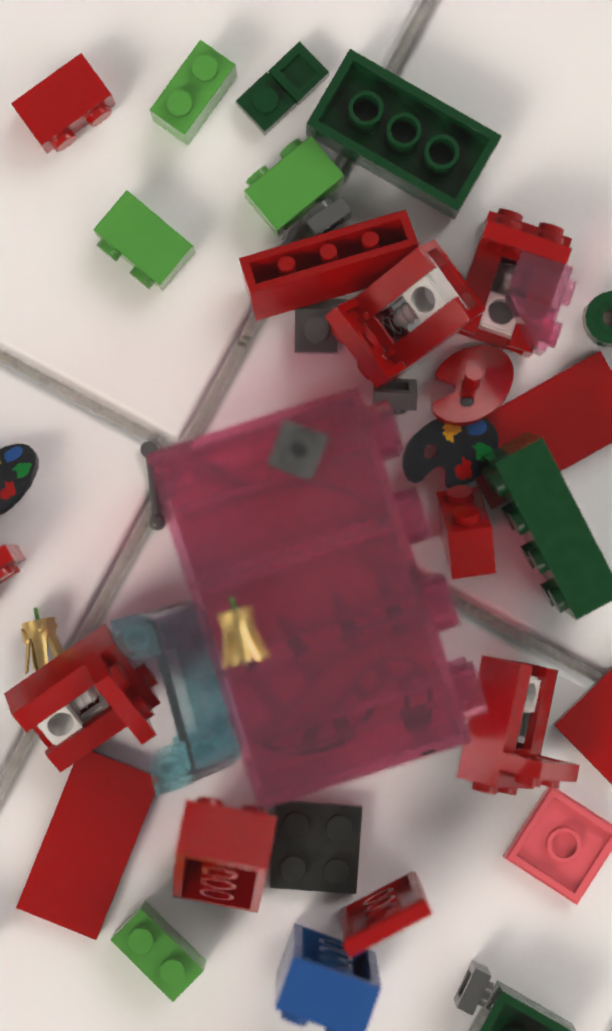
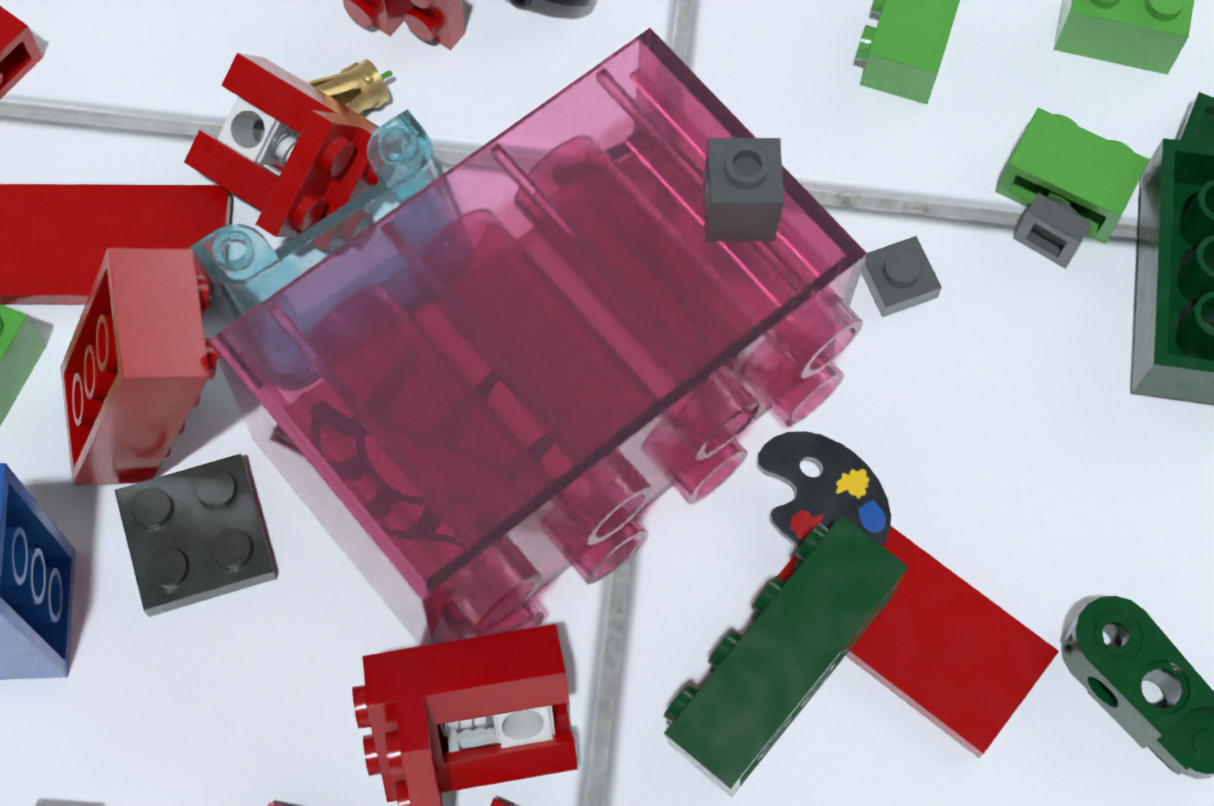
camera: 65 degrees right, 20 degrees down
(239, 635) = (464, 201): pearl gold piece -> none
(265, 103) = (1154, 111): dark green plate -> none
(326, 264) = (997, 248): red brick -> none
(379, 334) = (979, 350): red brick -> none
(383, 913) = (118, 613): red tile -> none
(400, 393) = (864, 398): dark grey plate -> none
(466, 532) = (721, 545): red brick -> none
(478, 374) = (943, 500): red piece -> none
(502, 242) = (1145, 470): red brick -> none
(535, 298) = (1099, 508): clear pink slope -> none

